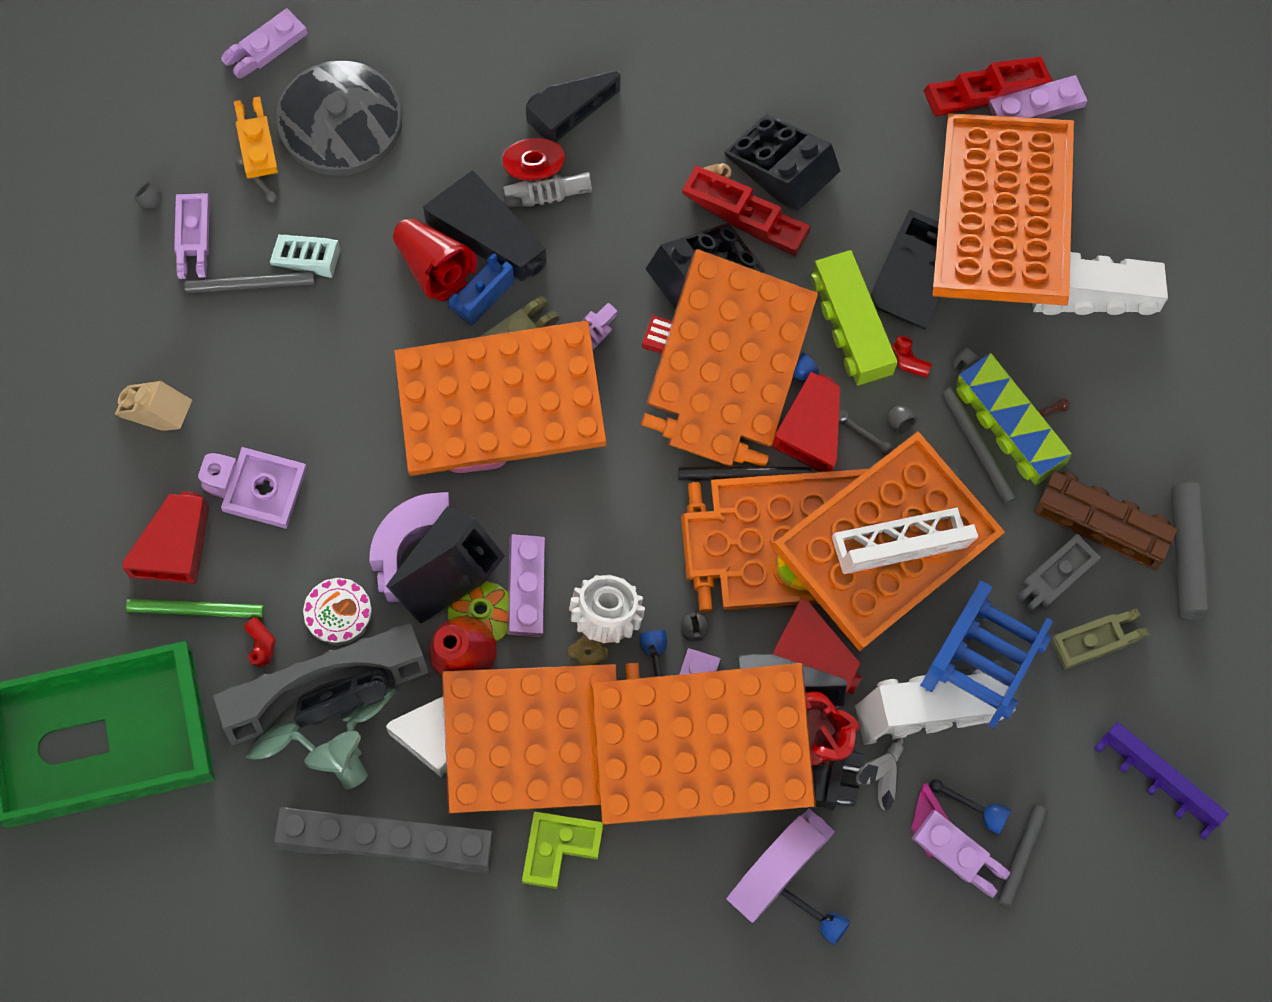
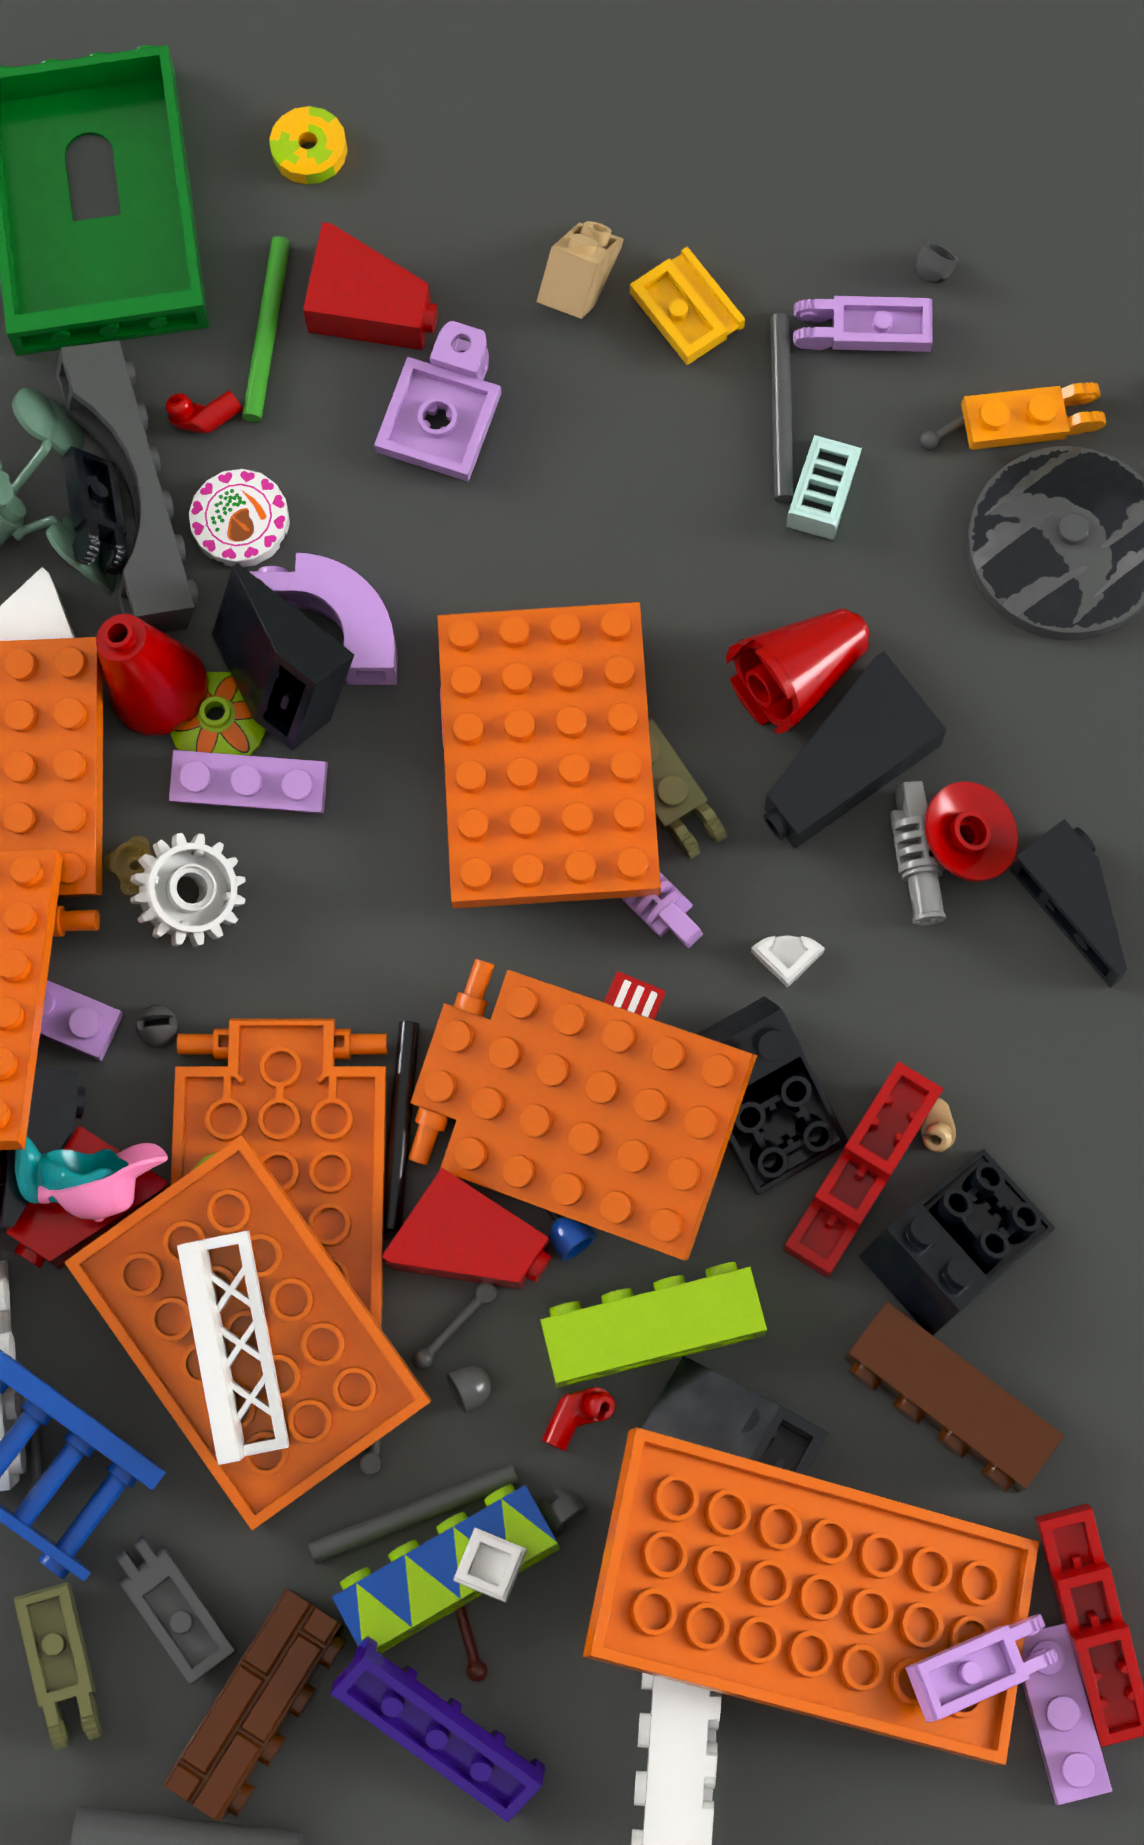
camera: 100 degrees right, 5 degrees up
(42, 584) = (304, 126): none -> yellow piece
(179, 340) = (687, 306): none -> yellow plate
(482, 290) = (741, 741): blue hinge -> none
(616, 261) = (787, 955): none -> white tile
(653, 645) = (132, 961): blue hinge -> none
(810, 631) = (84, 1183): none -> hair
(874, 158) = (953, 1398): none -> reddish brown brick
(1010, 386) = (490, 1565): none -> white tile
(1027, 128) = (977, 1669): none -> lavender hinge
(1105, 412) = (437, 1732): none -> dark purple hinge

